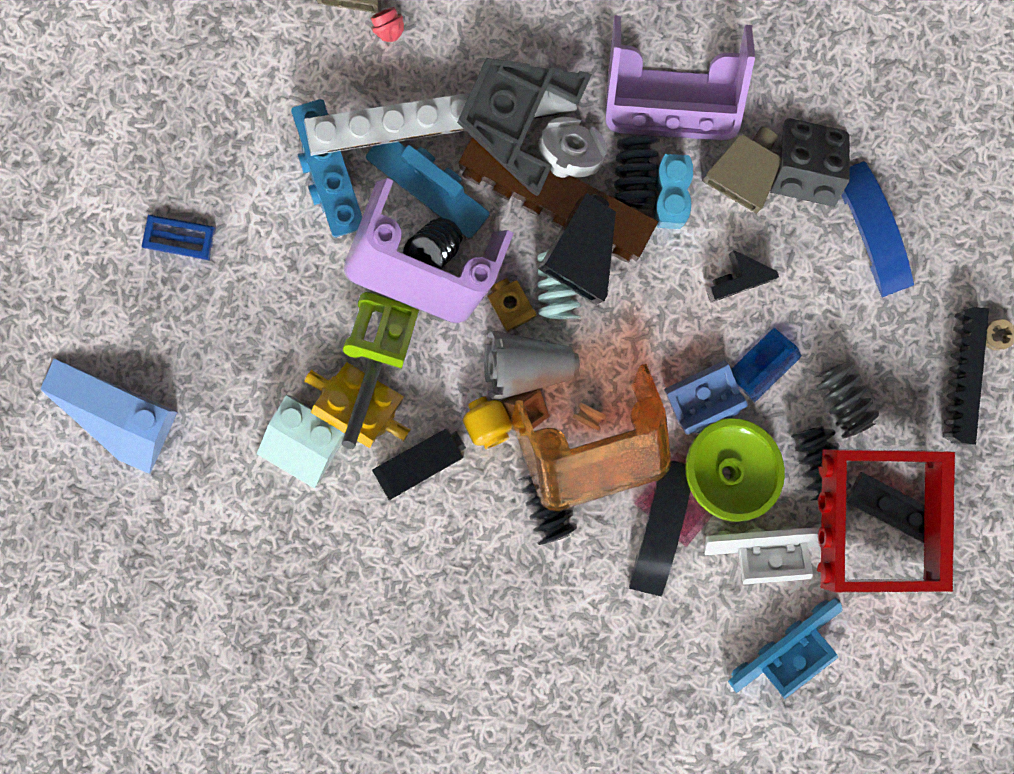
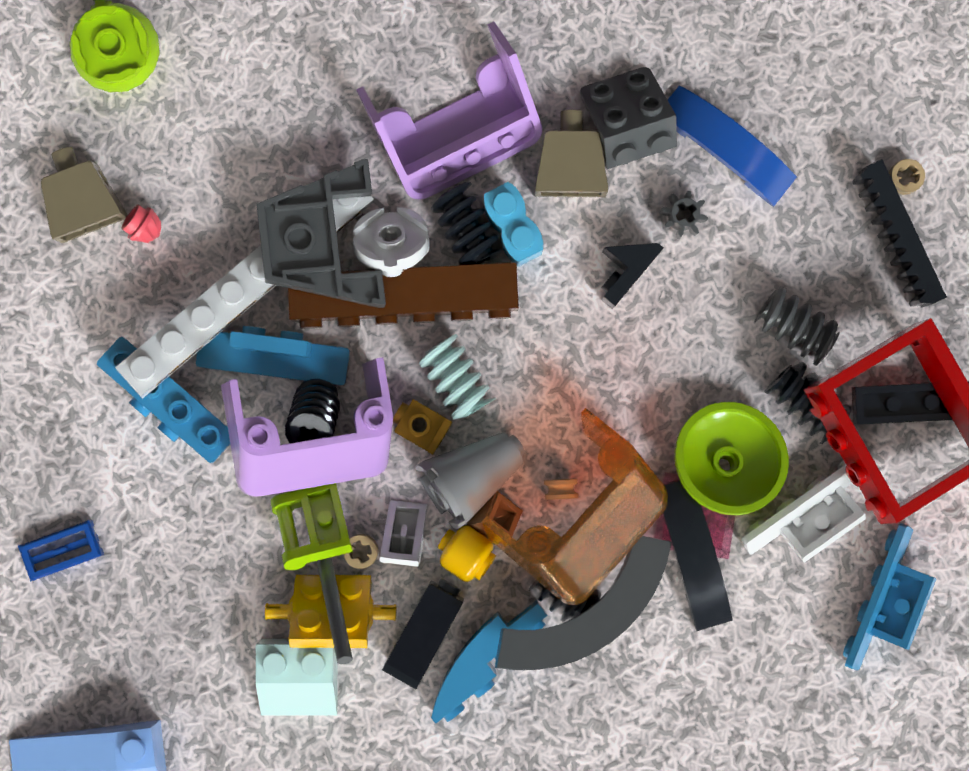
camera: 30 degrees left, 0 degrees up
(399, 380) = (357, 562): none -> tan bush
(439, 513) = (472, 669): none -> dark azure slope
(448, 378) = (403, 533): none -> white slope
(559, 534) = (597, 624): none -> dark grey tile
(584, 249) = (460, 334): black slope -> none
(705, 398) = (662, 405): medium blue bracket -> none
(765, 364) = (699, 338): clear blue slope -> none
(804, 269) = (684, 204): none -> dark grey gear

